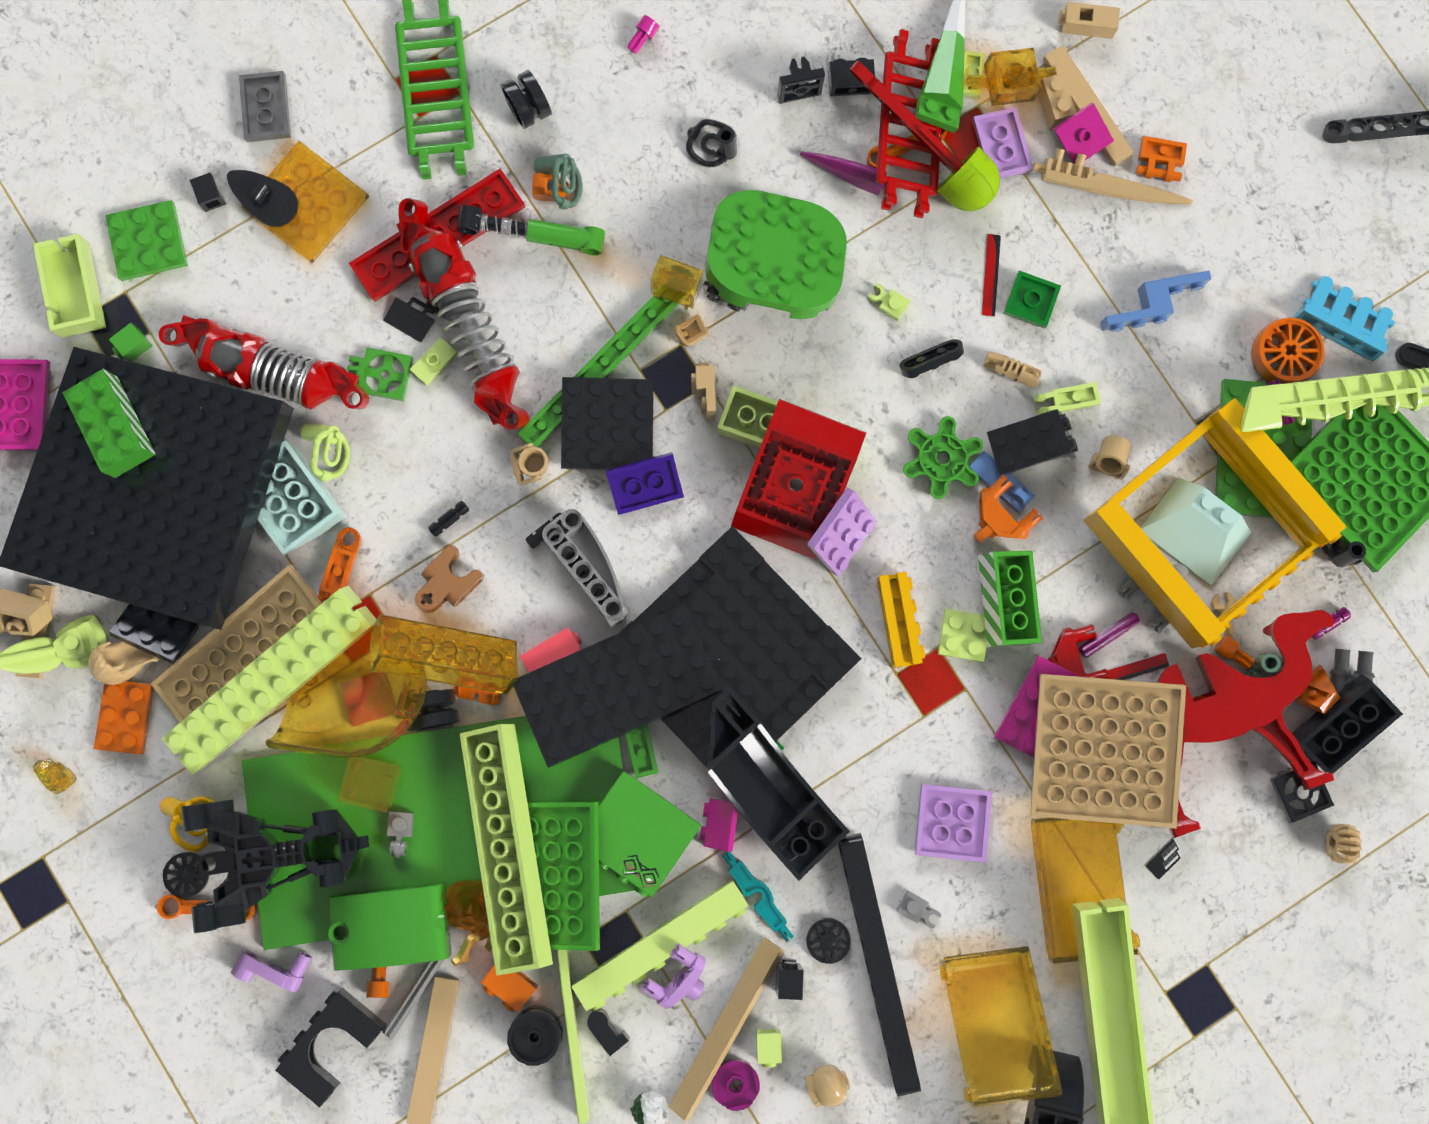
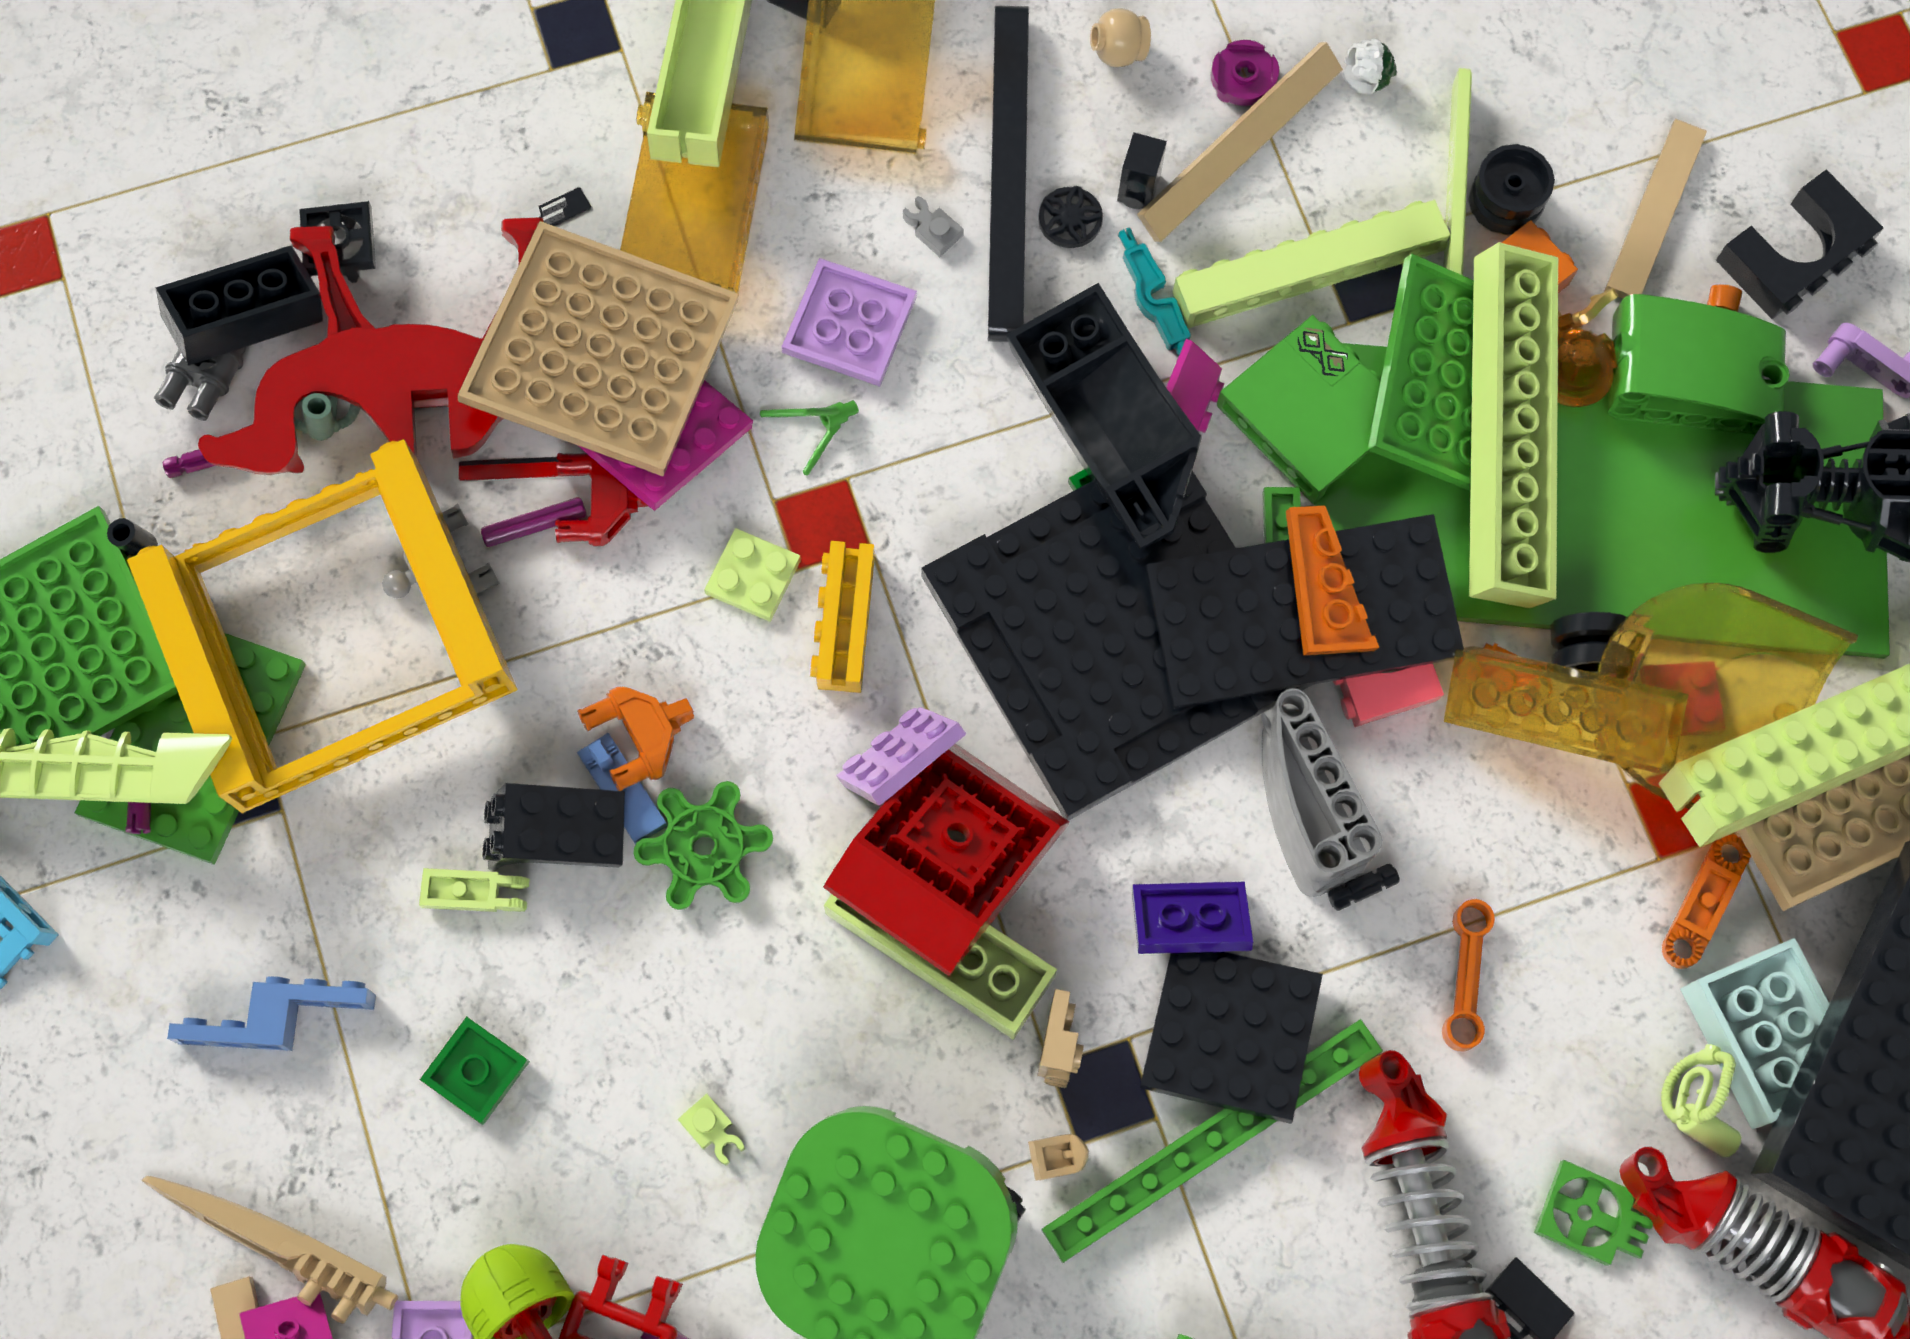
camera: 160 degrees left, 10 degrees down
(369, 783) = (1700, 555): clear yellow container -> none
(400, 825) = (1660, 504): light grey plate -> none
(411, 998) = (1689, 269): light grey axle -> none
(434, 361) = (1501, 1214): yellowish green plate -> none
(443, 585) = (1539, 840): medium nougat piece -> none
(448, 518) = (1516, 944): black axle -> none
(474, 493) = (1468, 975): none -> orange piece
(531, 462) = (1369, 991): tan piece -> none
(605, 690) = (1324, 588): none -> orange wing
(605, 1033) = (1409, 172): black leg -> none
(676, 282) = (1067, 1230): clear yellow container -> none
(685, 983) = (1287, 206): lavender connector -> none
(768, 1047) = (1188, 105): yellowish green brick -> none
(931, 358) = (657, 1018): black plate -> none
(946, 754) = (831, 418): none -> bright green plant
(991, 275) = (526, 1136): red sticker -> none
(1009, 598) = (670, 600): bright green brick -> none
(1013, 369) = (545, 960): tan hinge -> none
(1112, 457) = (435, 778): tan piece -> none
(1161, 152) = (162, 1277): orange plate -> none
(1196, 529) = (348, 643): light aqua slope -> none
(1216, 605) = (336, 523): tan bar -> none
(1229, 648) = (357, 451): orange piece -> none
(1263, 345) = (122, 909): orange piece -> none
(1320, 693) = (253, 354): orange wing -> none
(1343, 843) = (305, 161): tan gear -> none

